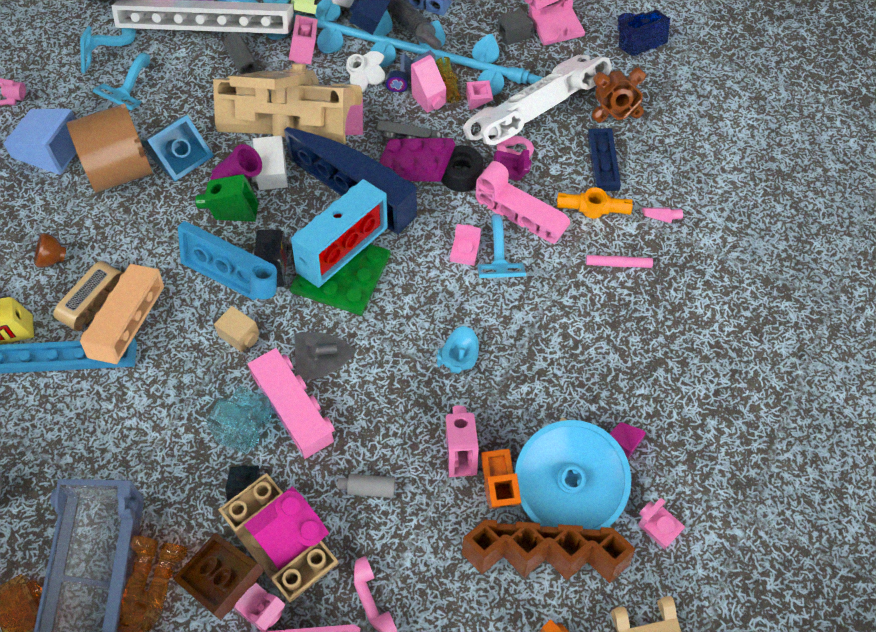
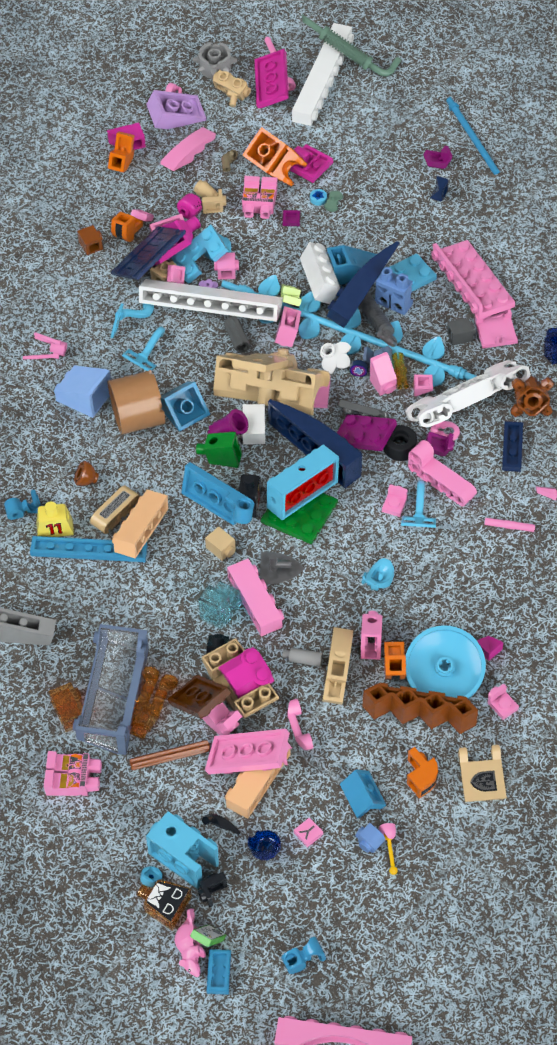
camera: 10 degrees right, 5 degrees down
(419, 495) = (338, 666): none -> tan slope
(594, 203) = (498, 479): light orange pin -> none

